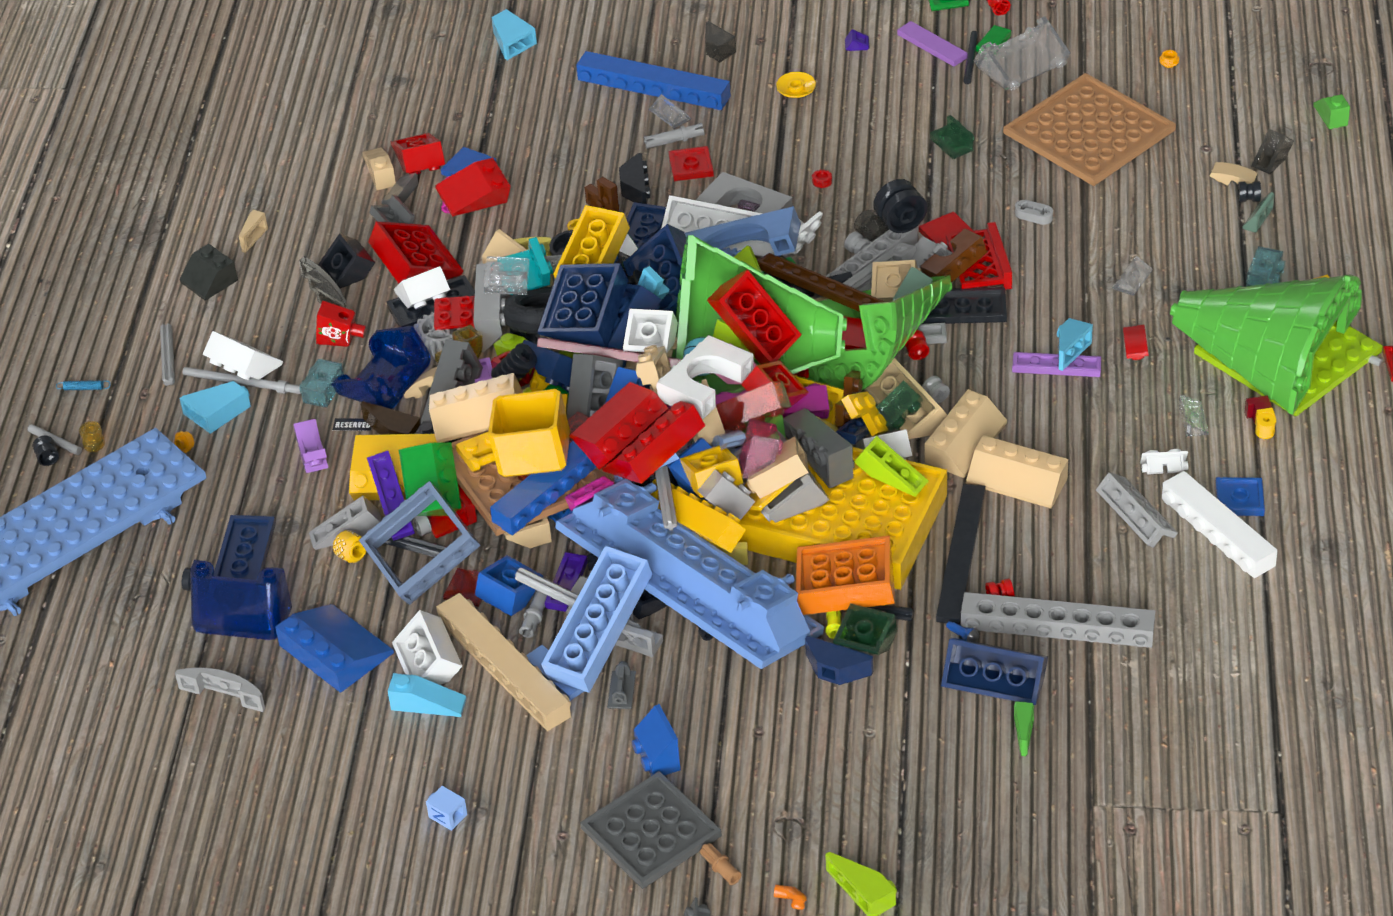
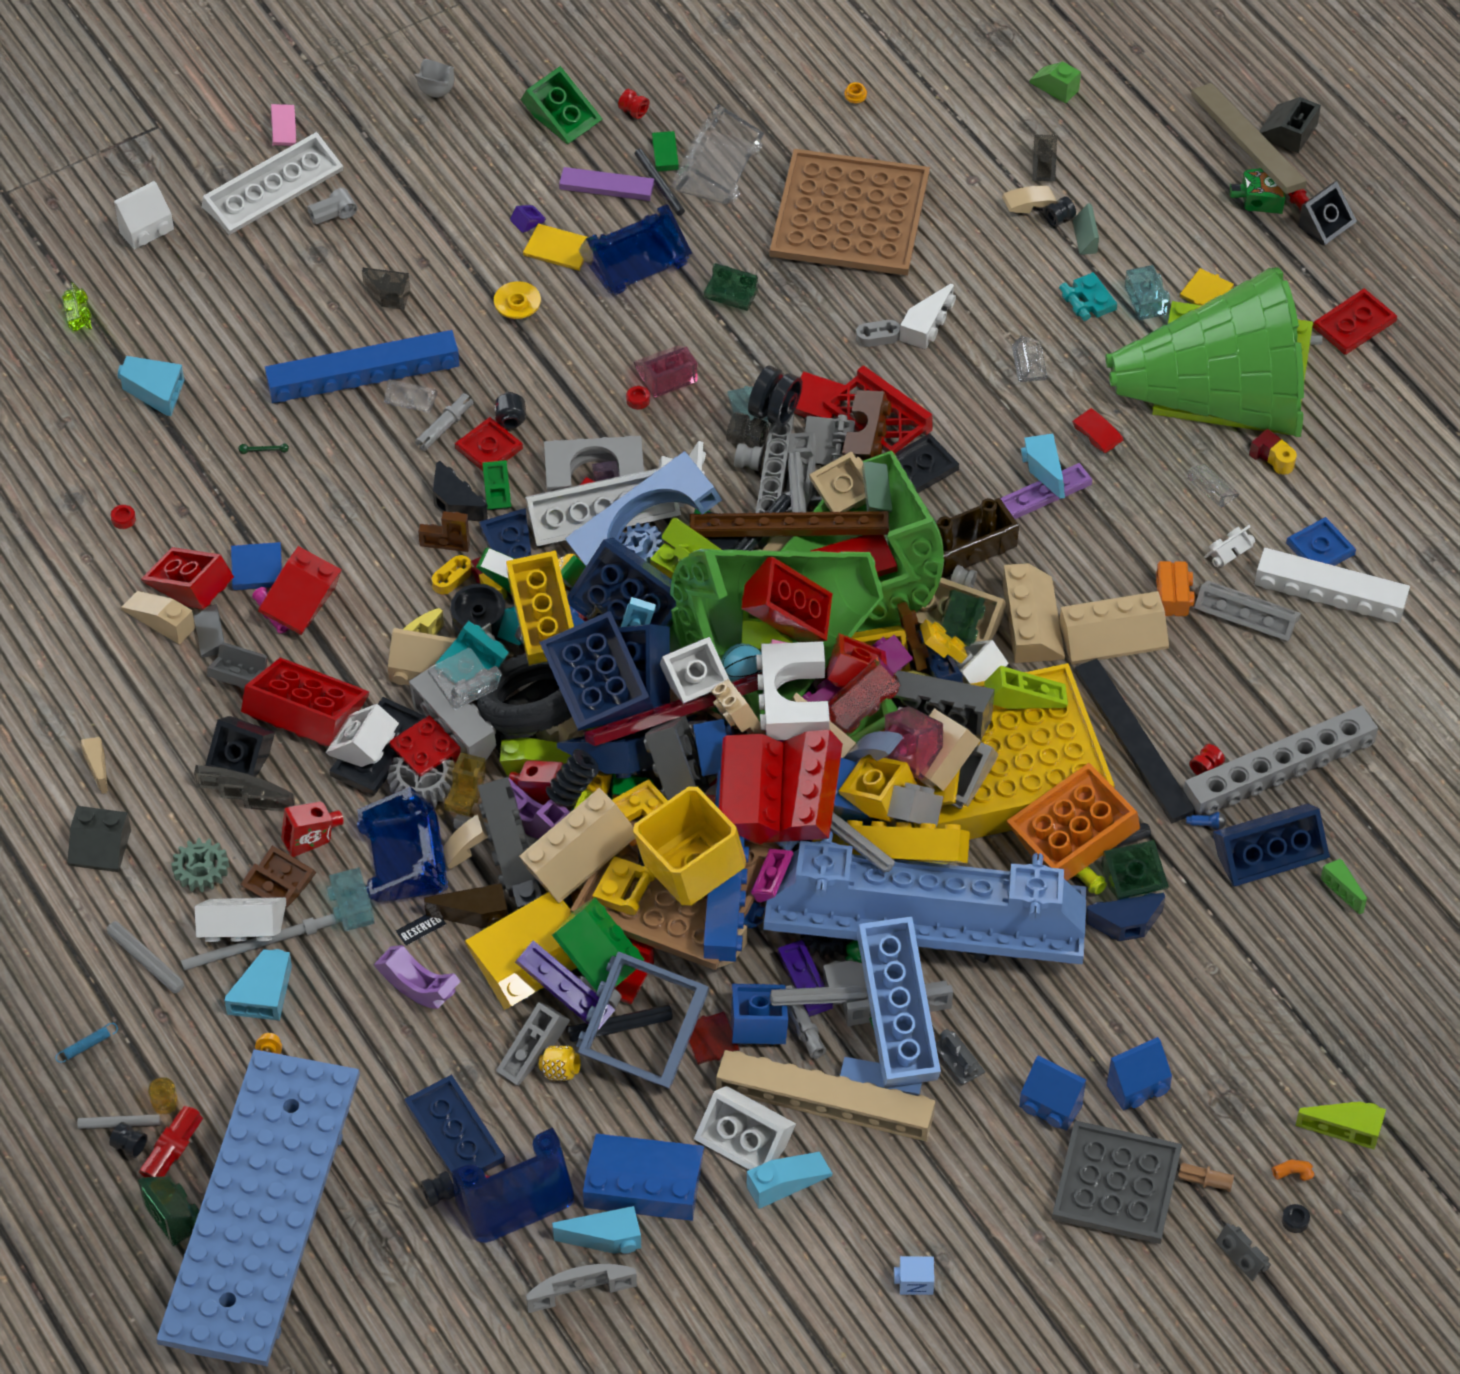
camera: 40 degrees left, 10 degrees up
(20, 488) = (169, 1207): none -> clear green slope
(64, 466) = (172, 1143): none -> red piece
(252, 317) = (200, 865): none -> sand green gear
(274, 664) = (606, 1231): none -> medium azure slope
(295, 350) = (278, 876): none -> reddish brown slope
(416, 102) = (123, 516): none -> red tile
(531, 97) = (243, 448): none -> dark green hinge
(672, 185) = (496, 485): none -> green slope
(722, 146) = (510, 410): none -> black head
(733, 764) = (1139, 1074): none -> blue slope
(855, 168) = (668, 370): none -> clear pink slope
(861, 68) = (555, 247): none -> yellow piece
(905, 88) = (636, 251): none -> clear blue windscreen
(960, 361) = (977, 535): none -> dark brown piece
(1077, 215) = (923, 319): none -> white slope
(1089, 468) = (1173, 587): none -> orange brick
(1224, 259) = (1093, 293): none -> teal plate

